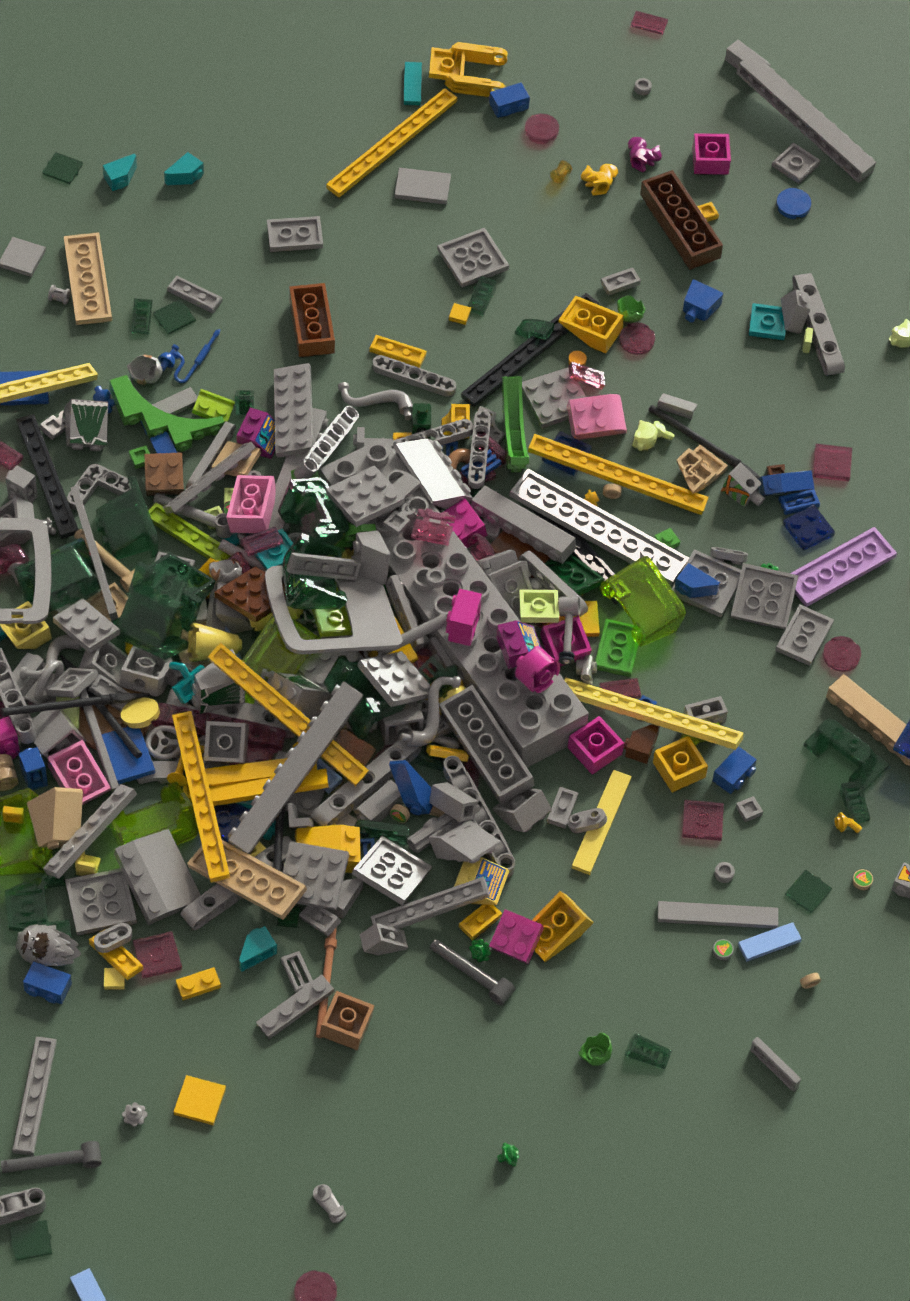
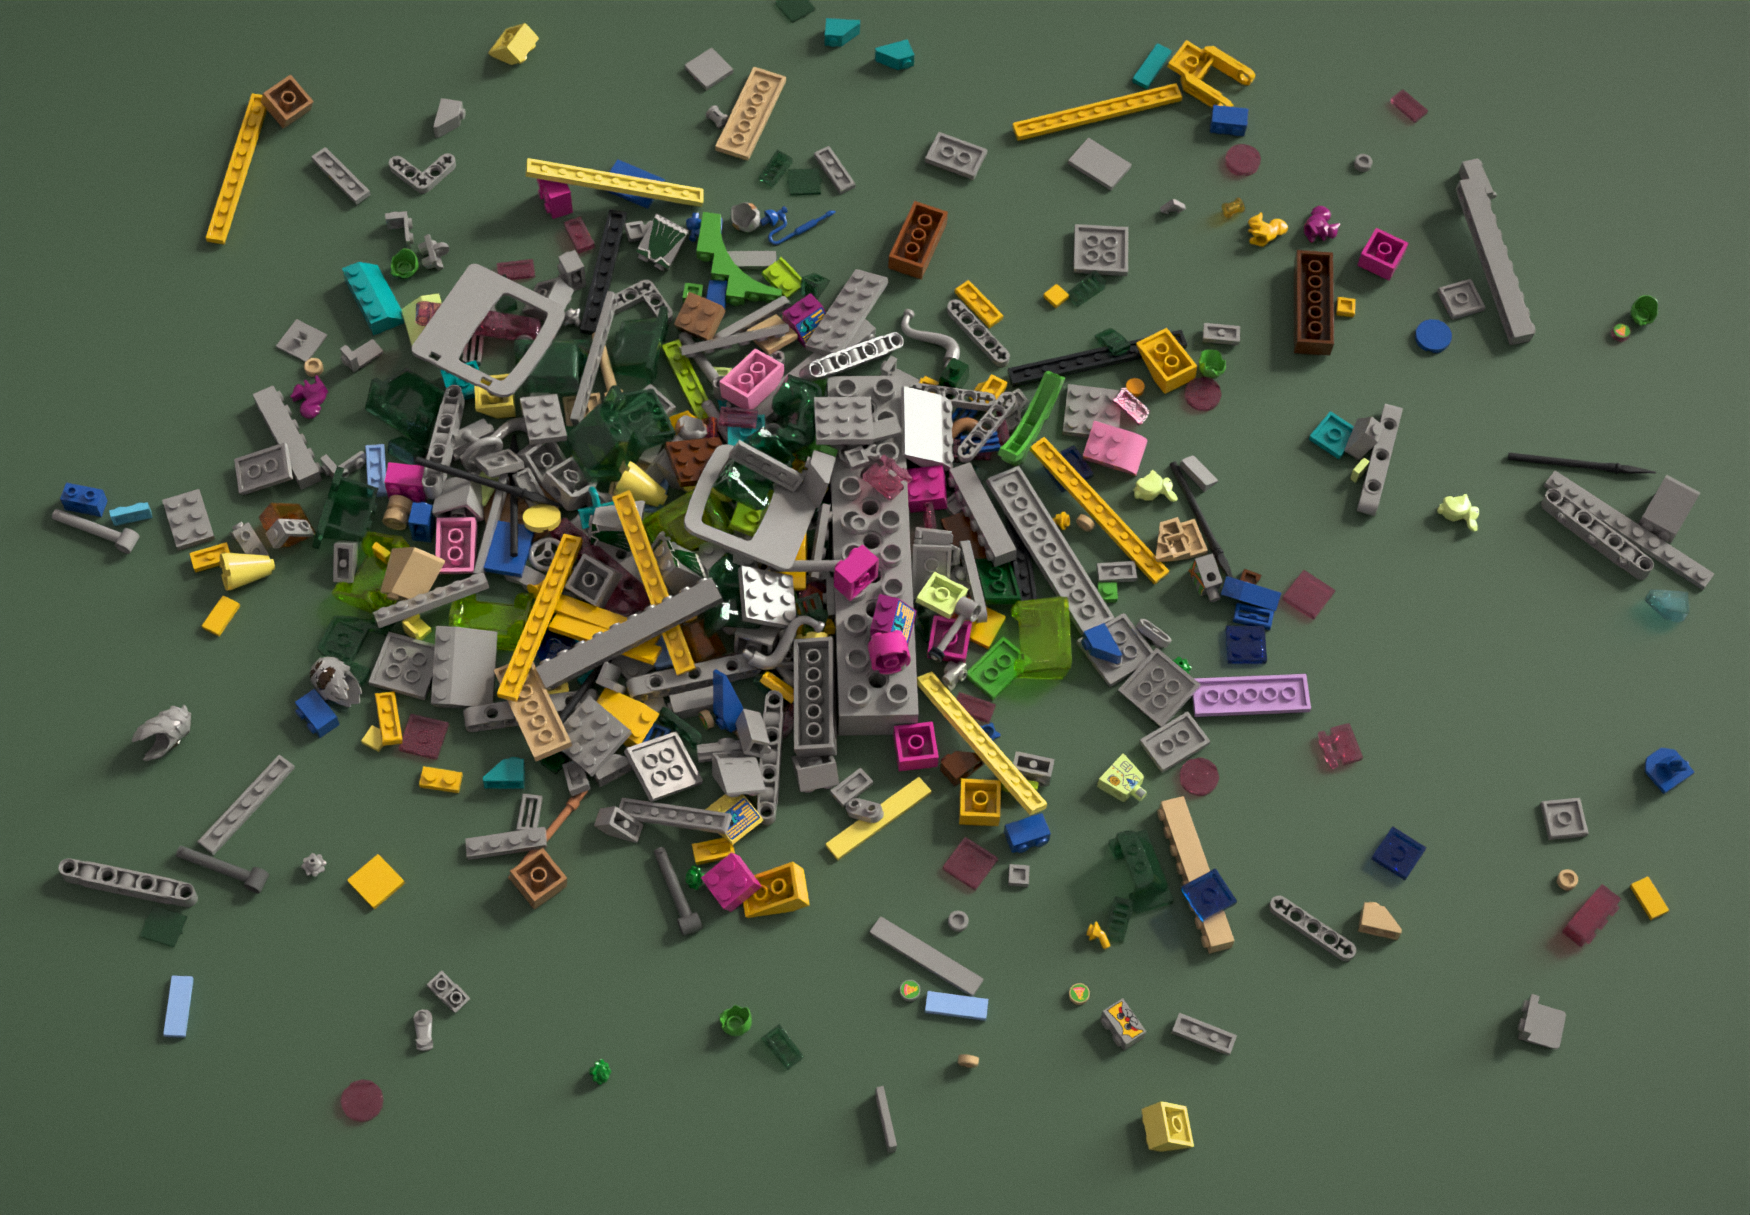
camera: 30 degrees right, 5 degrees up
(112, 937) = (392, 702): light grey plate -> none
(329, 1160) = (448, 992): none -> light grey slope
(509, 193) = (1172, 205): none -> light grey tile
(664, 519) = (1116, 572): none -> light grey plate
(701, 301) = (1283, 387): blue torso -> none
(784, 687) = (1122, 780): none -> yellowish green torso
(808, 891) = (1023, 978): clear green piece -> none

